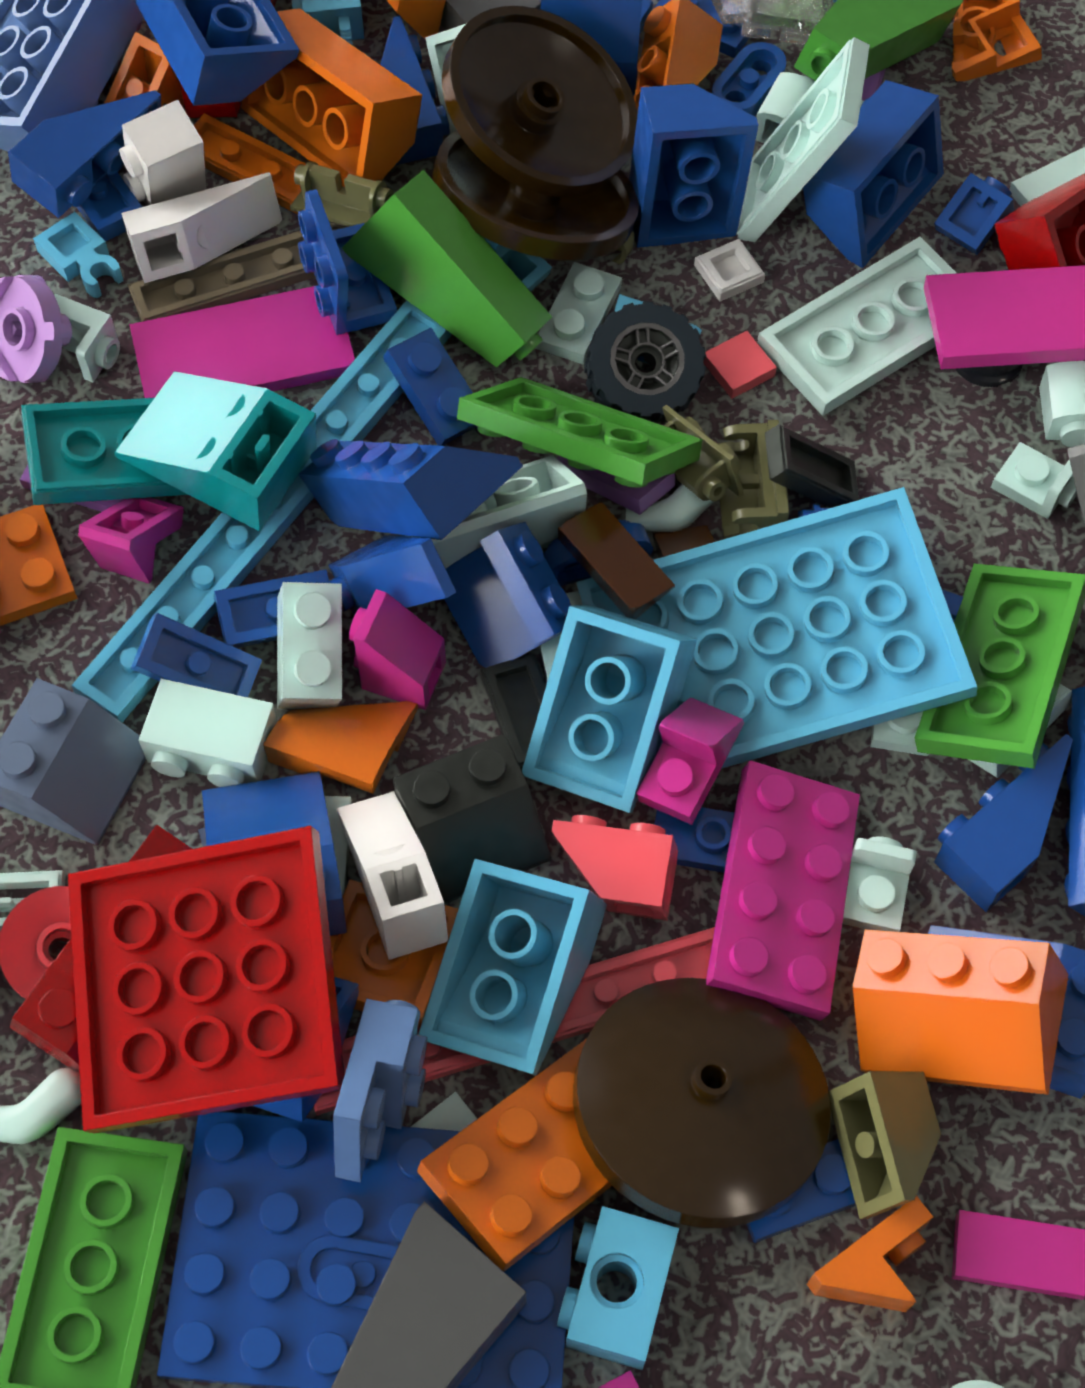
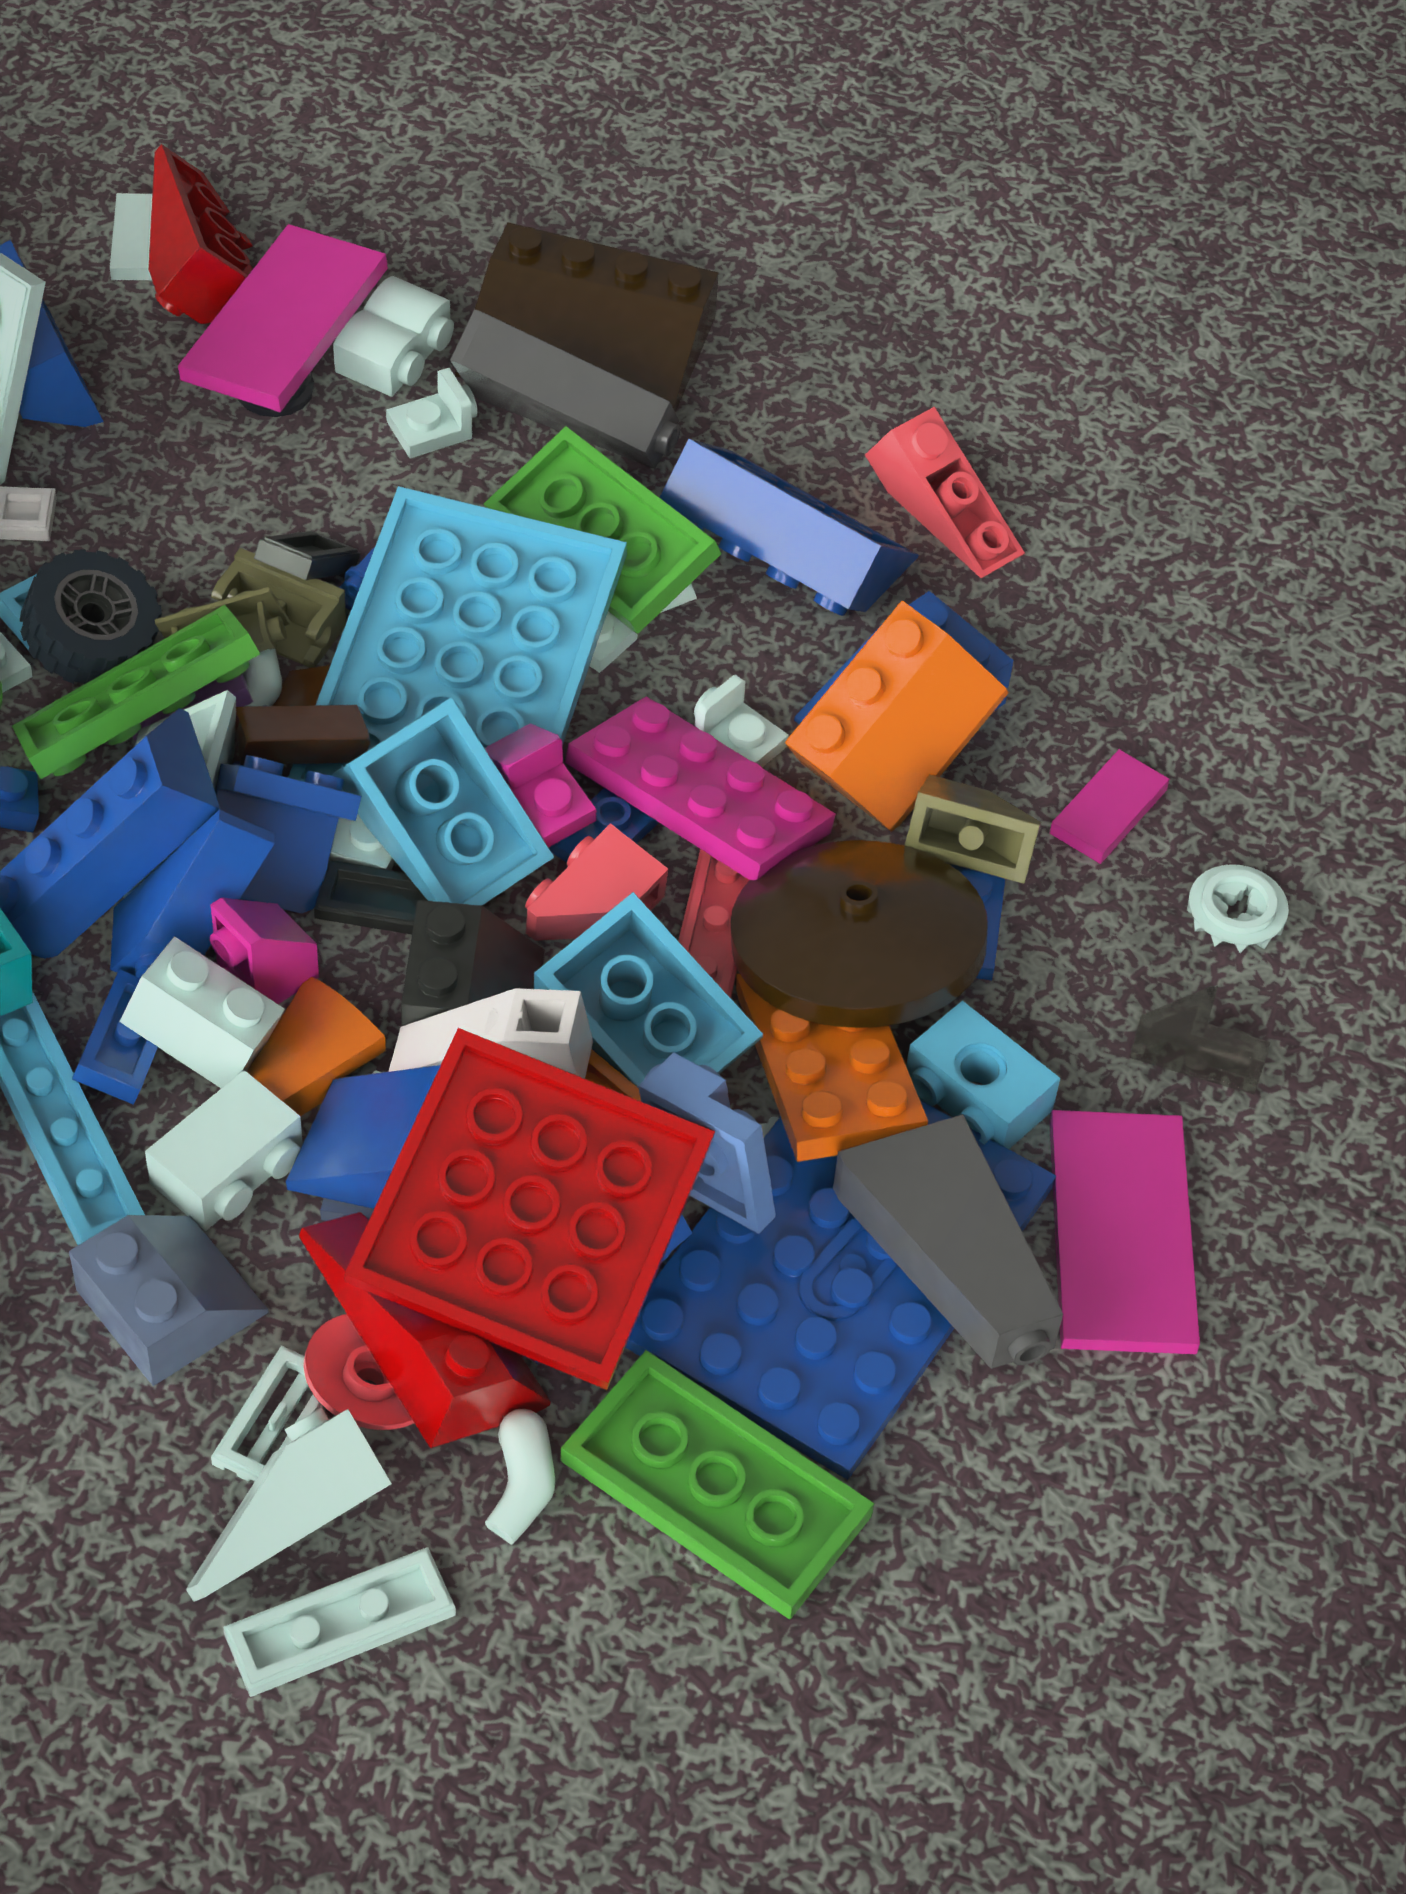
camera: 65 degrees left, 10 degrees down
(193, 658) = (132, 1121): blue plate -> none
(739, 364) = (143, 551): coral tile -> none
(858, 329) = (175, 451): light aqua plate -> none
(861, 1270) = (1064, 902): orange slope -> none
(974, 211) = (123, 307): blue bracket -> none
(1007, 834) = (764, 623): blue slope -> none

